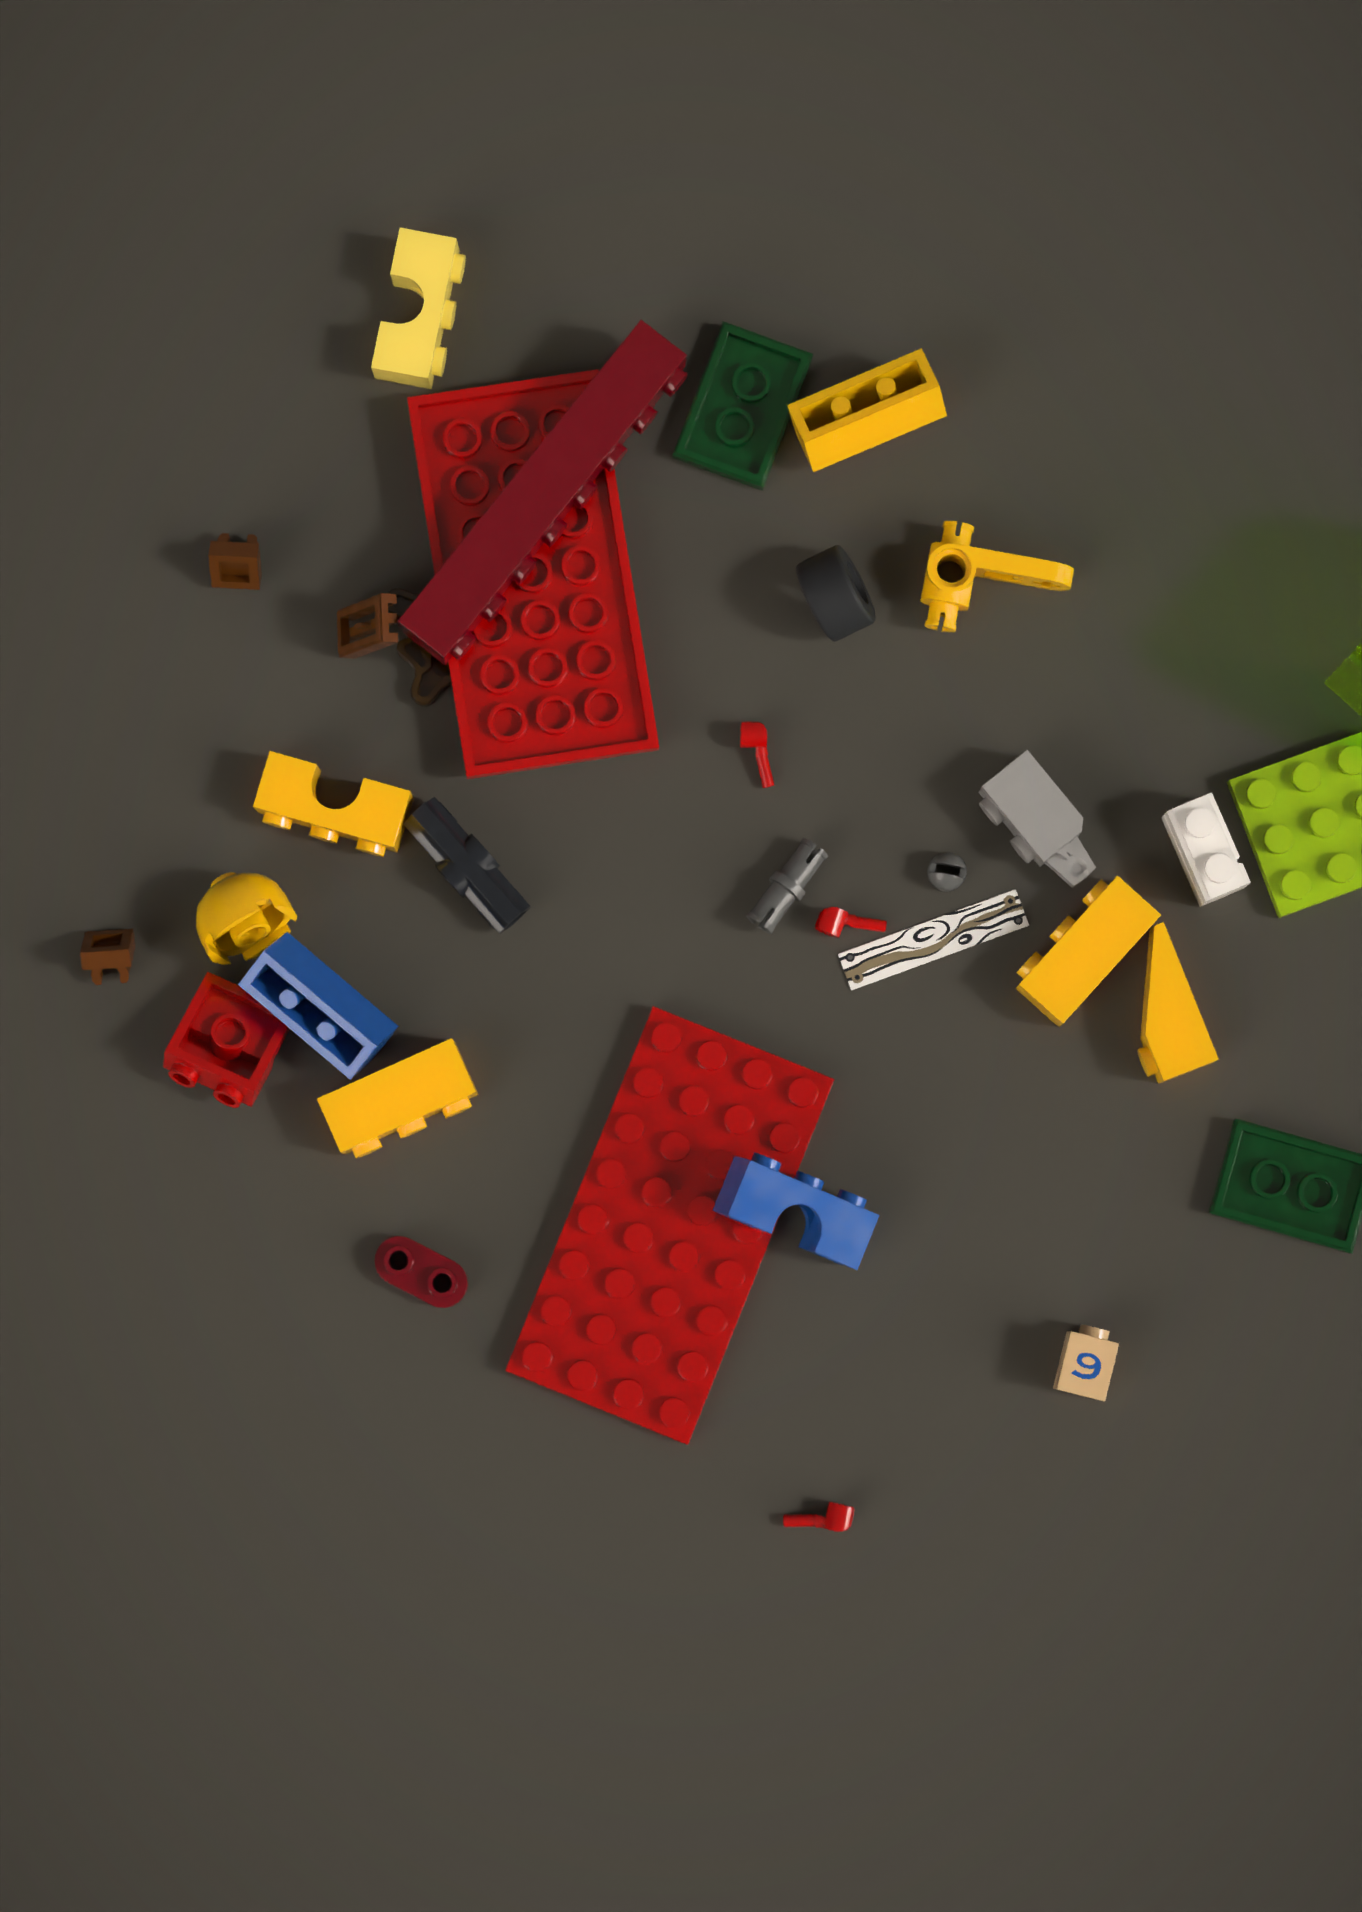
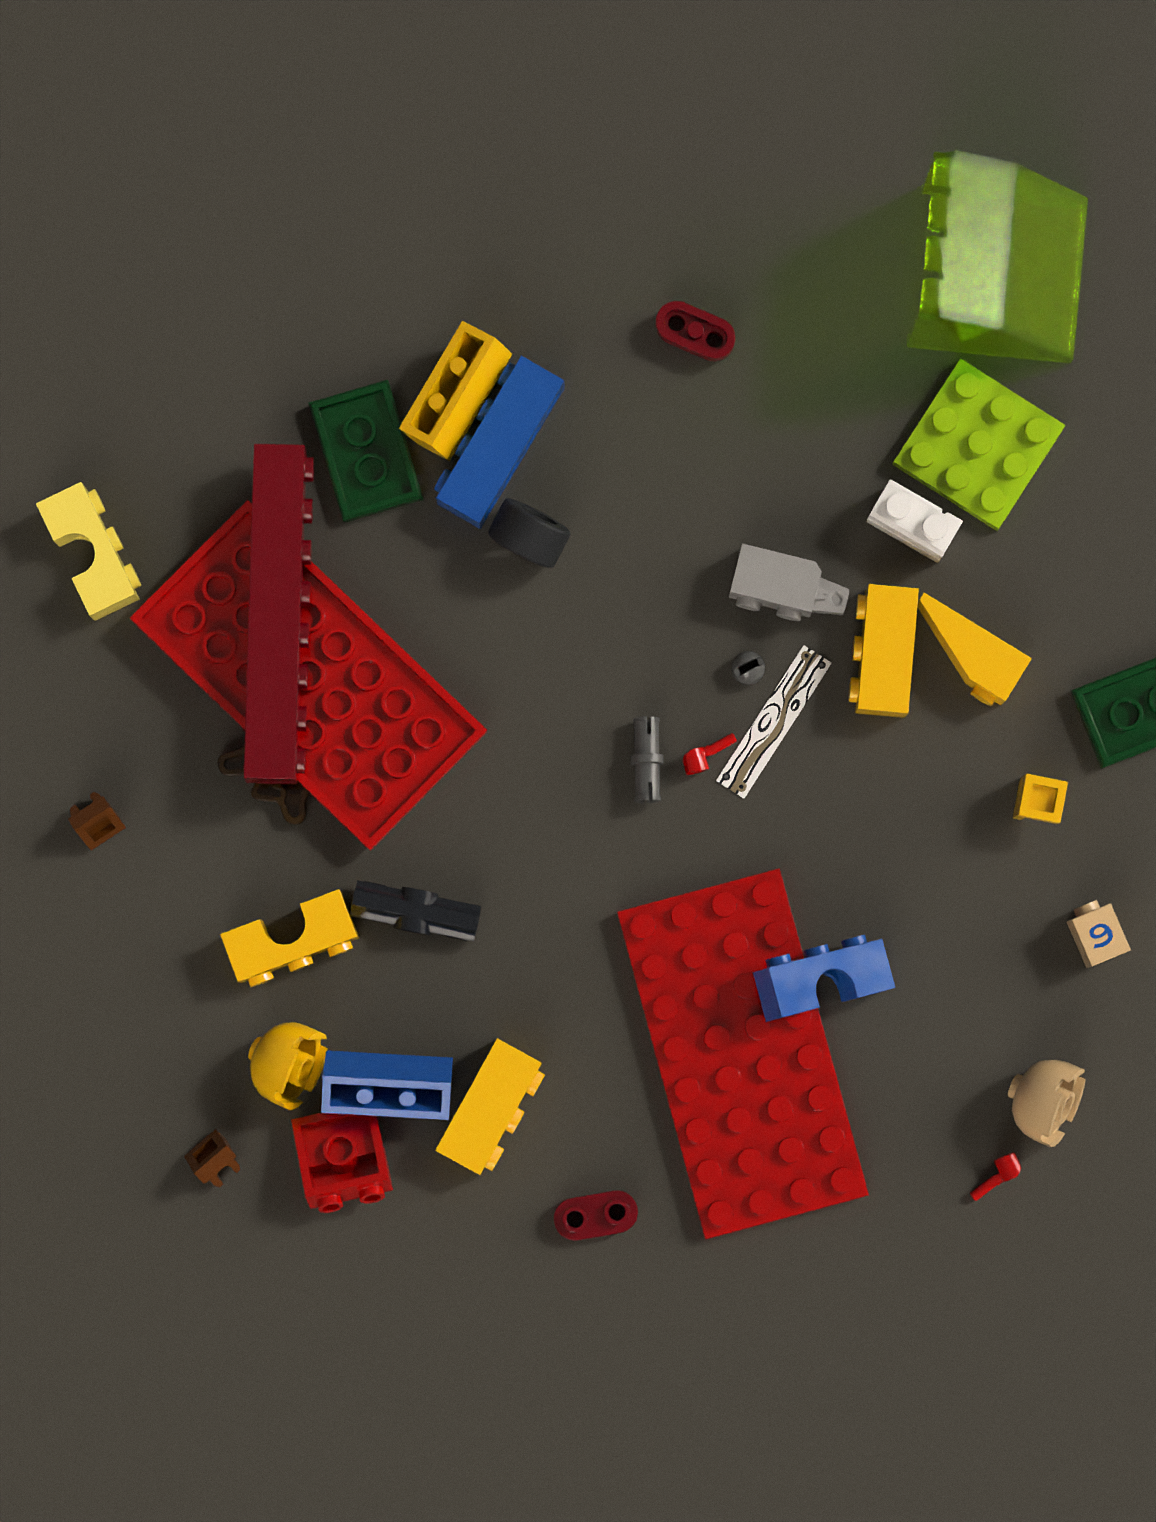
camera: 40 degrees left, 0 degrees up
(380, 625) = (232, 787): reddish brown tile -> none
(755, 736) = (546, 672): red hand -> none
(873, 488) = (500, 441): none -> blue brick
(920, 1480) = (1046, 1098): none -> tan cylinder
(948, 598) = (608, 479): yellow piece -> none
(1127, 1197) = (1040, 799): none -> yellow panel
(1136, 521) = (696, 329): none -> dark red plate

